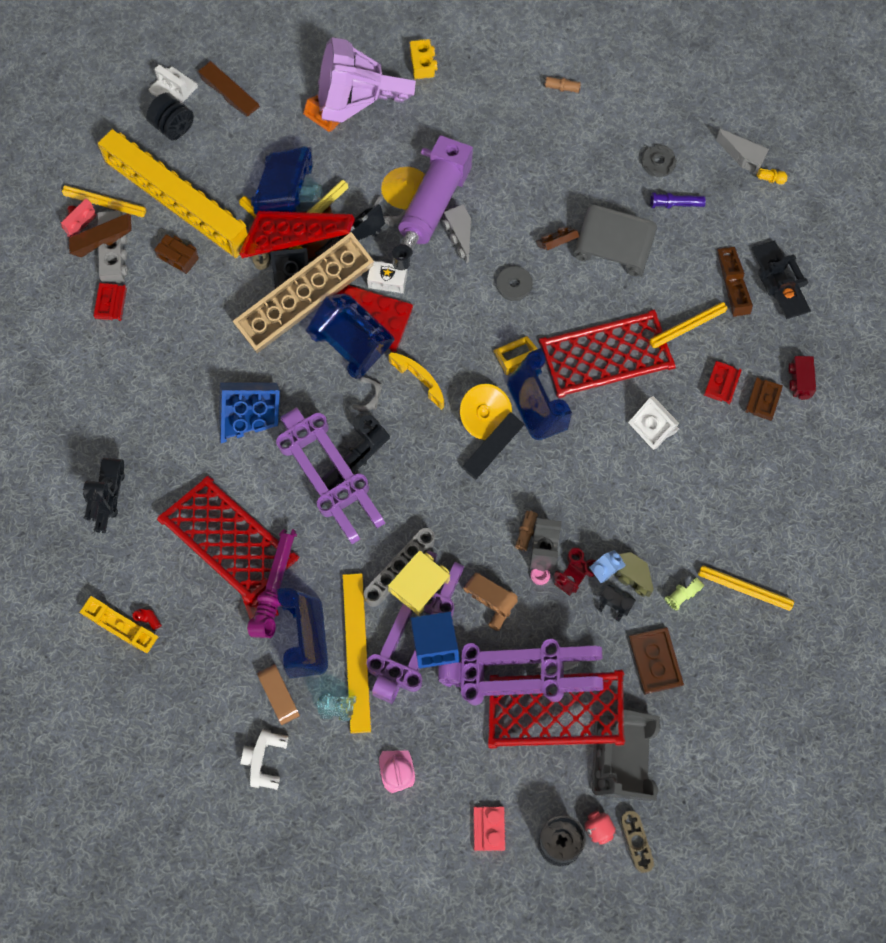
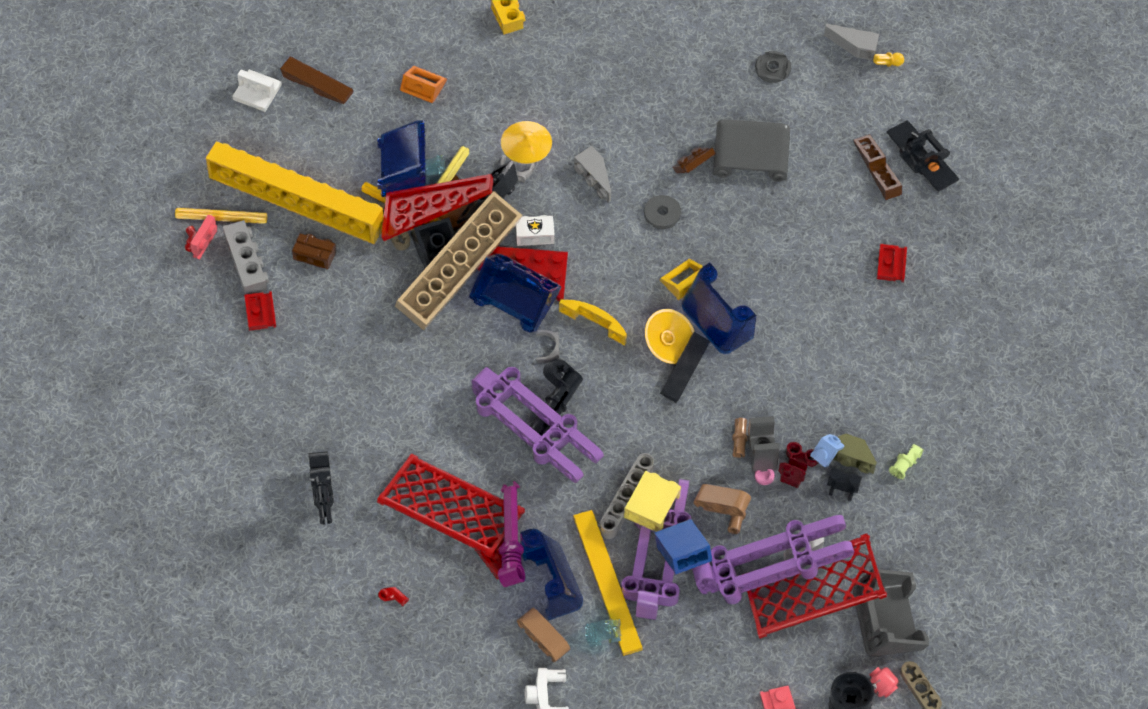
camera: 15 degrees left, 10 degrees down
(105, 233) = (239, 244): reddish brown slope -> none
(118, 625) = (367, 608): yellow slope -> none
(169, 116) = (266, 118): black wheel -> none
(247, 408) = (432, 381): blue wedge -> none
(365, 80) = (452, 50): lavender plate -> none
(396, 770) = (677, 678): bright pink piece -> none
(448, 169) = (565, 119): medium lavender piece -> none
(562, 84) = (656, 11): medium nougat pin -> none
(625, 325) = (793, 274): red door -> none
(654, 423) = (836, 312): white bracket -> none
(656, 660) = (895, 527): reddish brown tile -> none
(668, 200) = (793, 102): dark purple pin -> none
(688, 324) = (844, 216): yellow axle -> none
(746, 588) = (963, 444): yellow axle -> none
(764, 398) = (935, 270): reddish brown plate -> none
(803, 377) = (967, 242): dark red brick -> none

